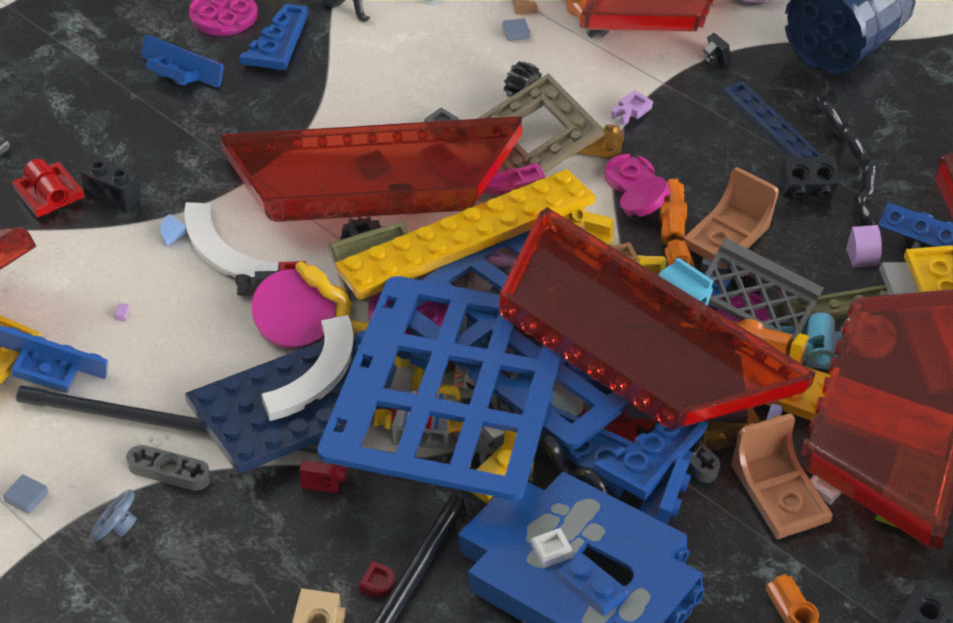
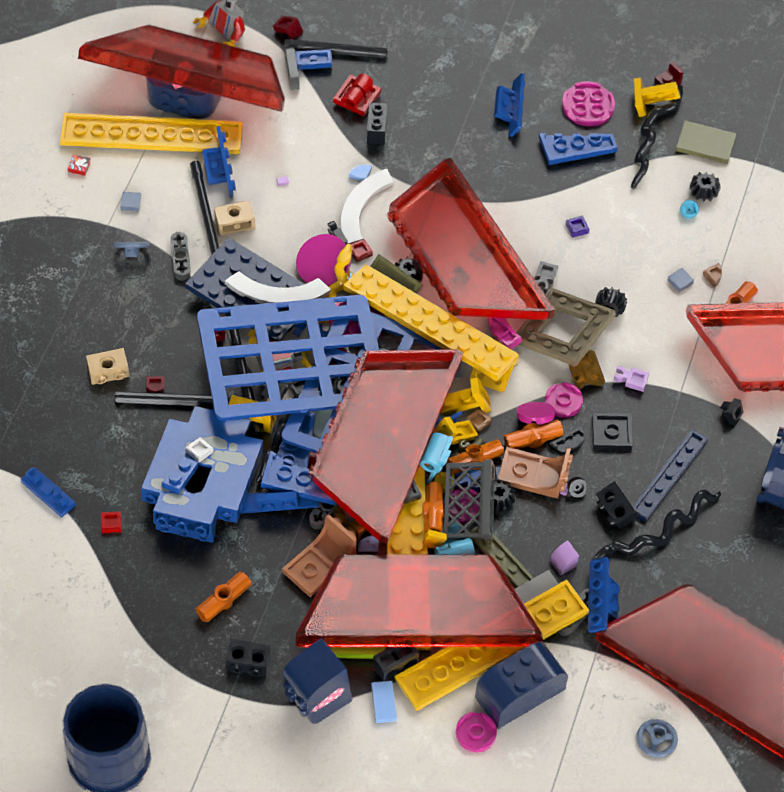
camera: 65 degrees right, 10 degrees up
(150, 379) = (234, 218): none -> tan brick
(389, 78) = (577, 226): none -> dark purple tile
(694, 150) = (612, 431): none -> tile
(694, 189) = (572, 439): none -> black tile

